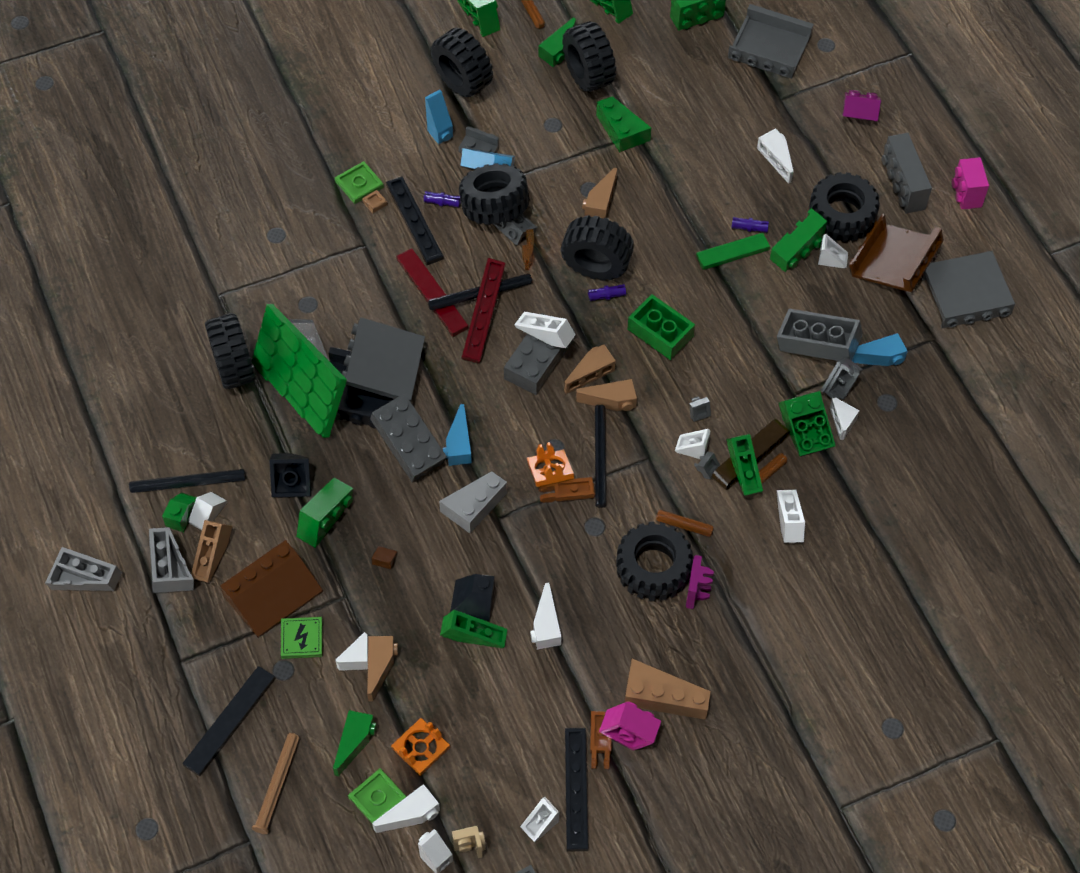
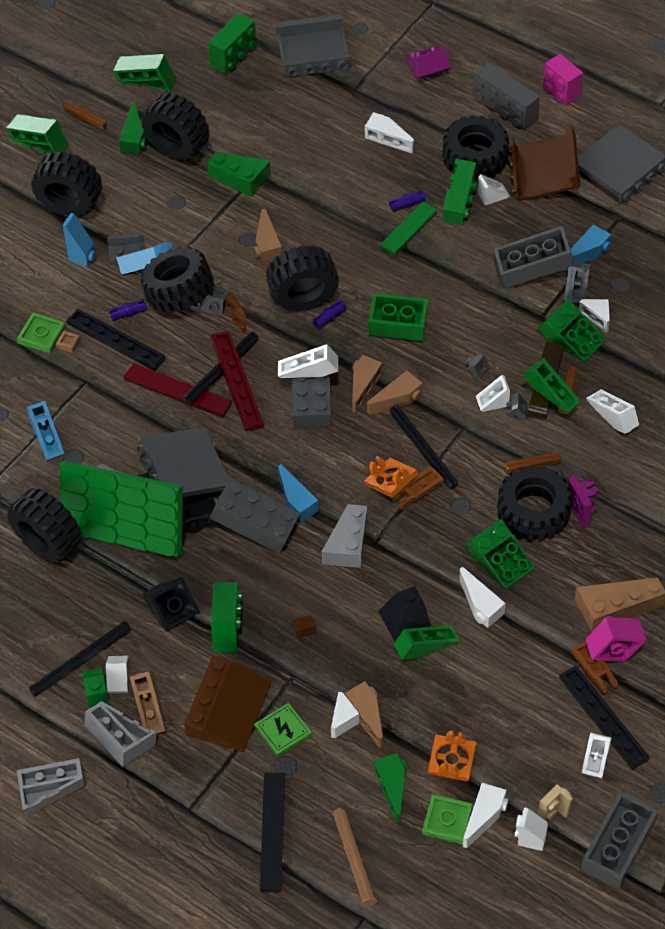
camera: 30 degrees left, 5 degrees down
(298, 268) = (45, 430): none -> dark azure slope
(593, 590) = (499, 554): none -> green slope

